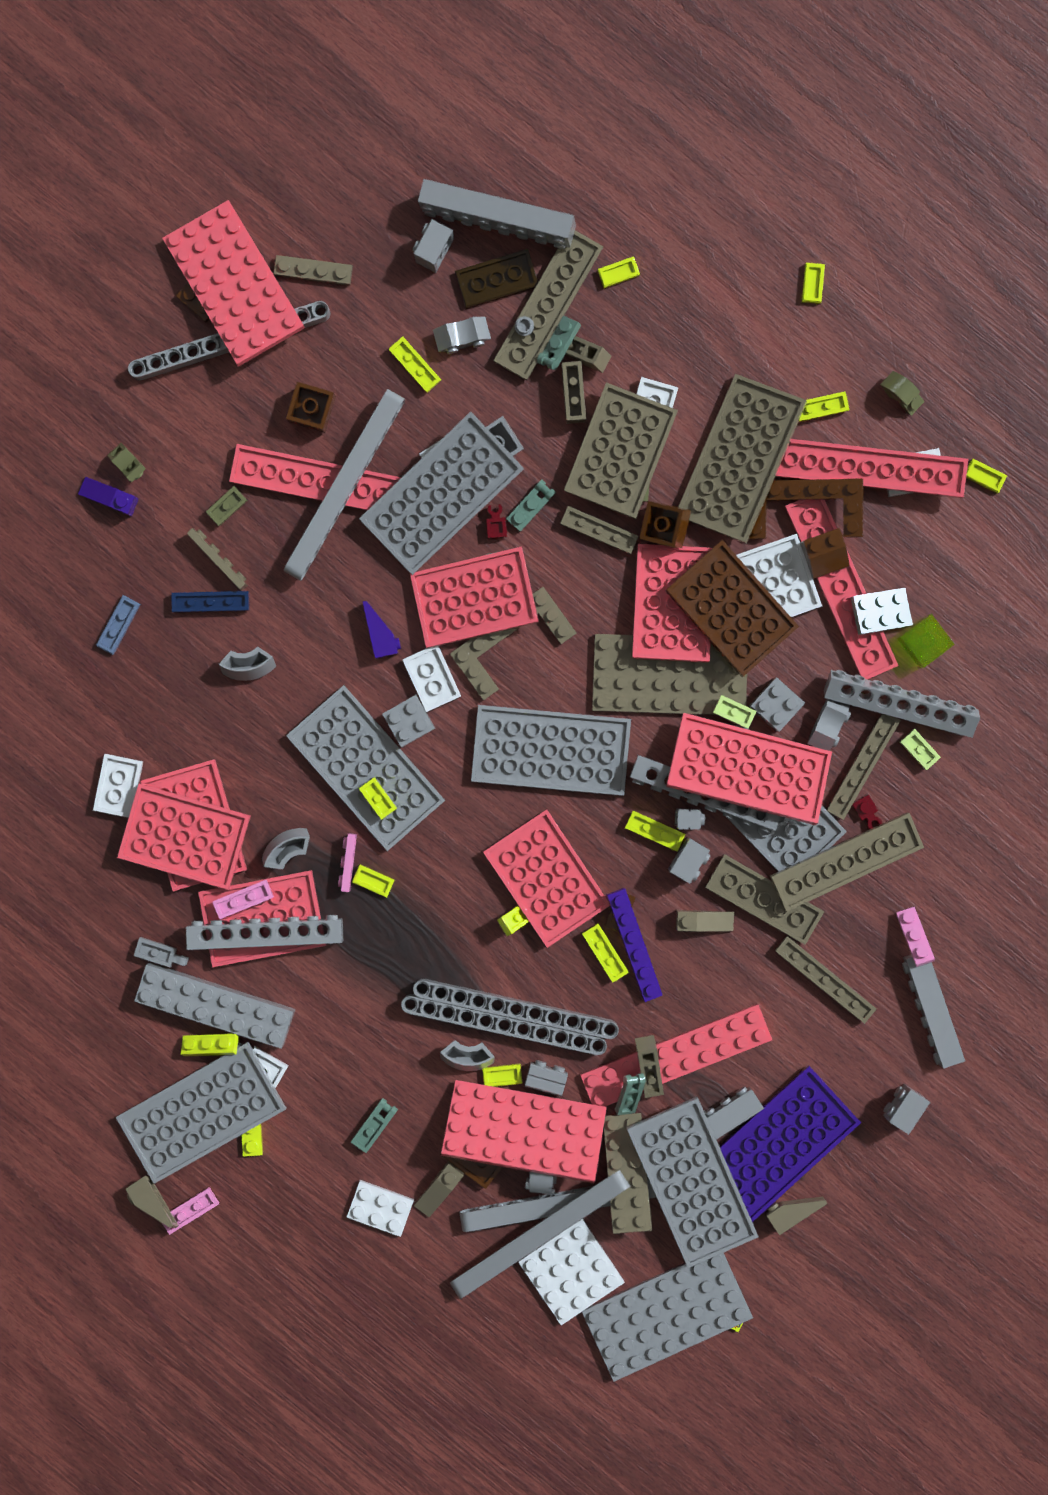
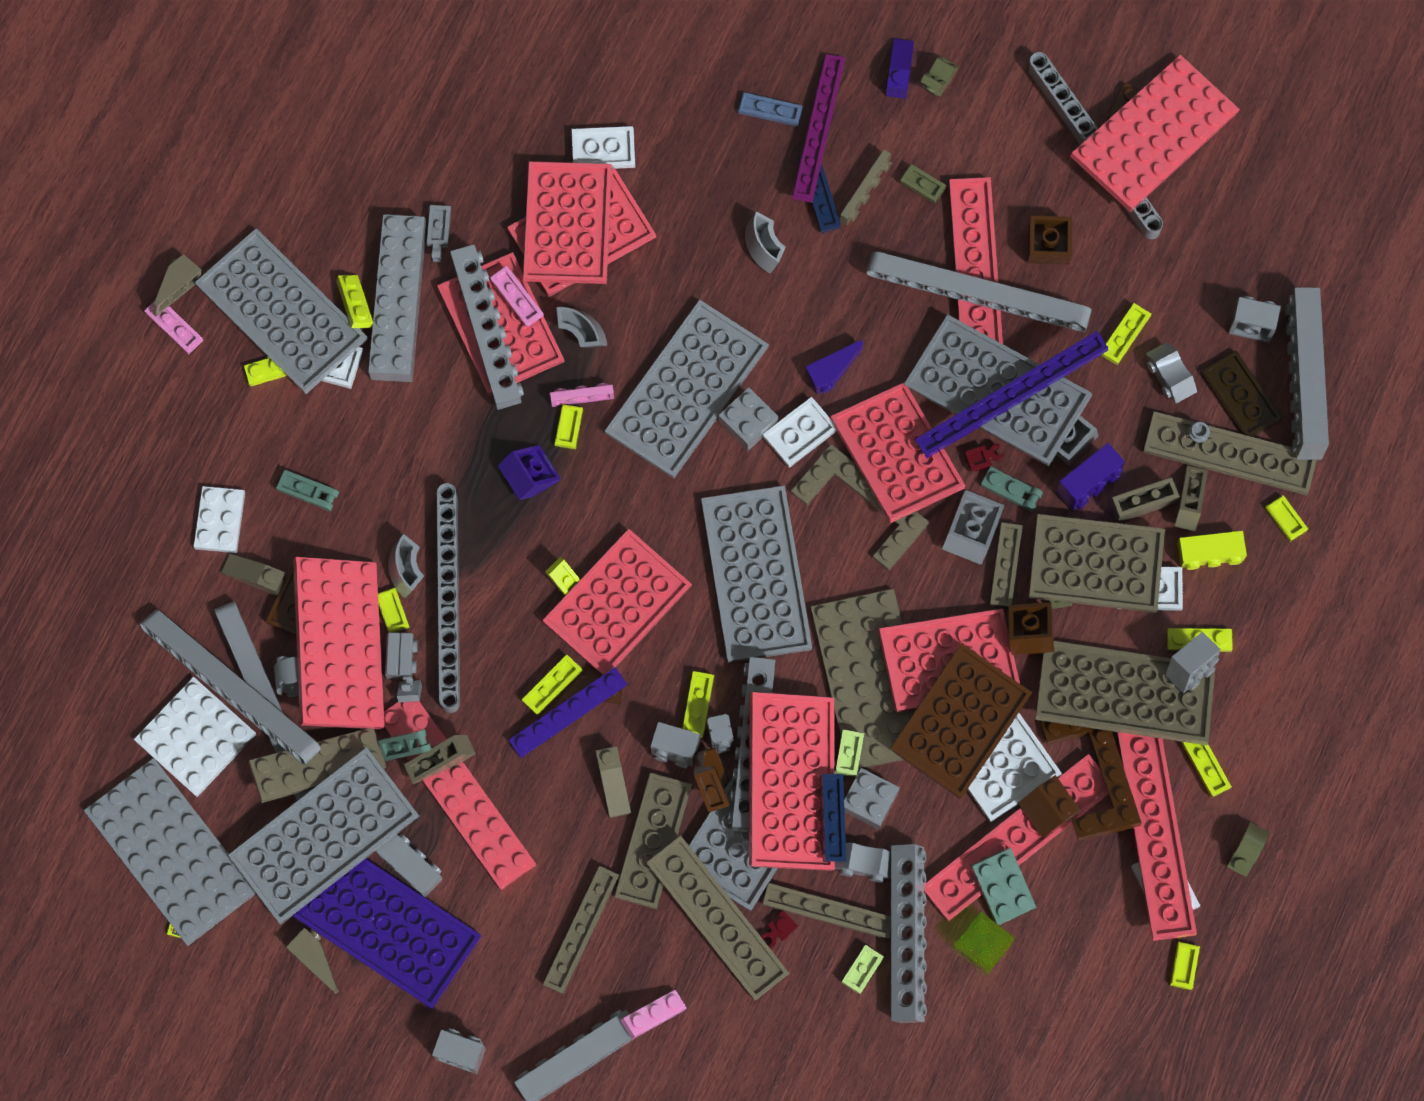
camera: 75 degrees right, 15 degrees down
(149, 586) = (818, 128): none -> magenta tile
(313, 270) = (1193, 210): dark tan plate -> none
(378, 798) = (658, 405): neon yellow plate -> none
(407, 926) = (528, 472): none -> dark purple slope
(452, 482) = (1011, 394): none -> dark purple plate
(524, 1014) = (471, 615): light grey beam -> none
(542, 433) = (1090, 477): none -> dark purple brick
(557, 549) = (973, 527): none -> light grey slope
(559, 343) = (1191, 472): sand green plate -> none
(579, 1077) = (409, 690): none -> light grey tile
(632, 346) = (1211, 550): none -> neon yellow brick
(707, 380) = (1179, 637): none -> neon yellow plate
(722, 838) = (711, 779): none -> reddish brown panel
(737, 397) = (1193, 663): none -> light grey brick
(790, 742) = (833, 818): none -> dark blue plate
(813, 283) = (1338, 725): neon yellow tile -> none

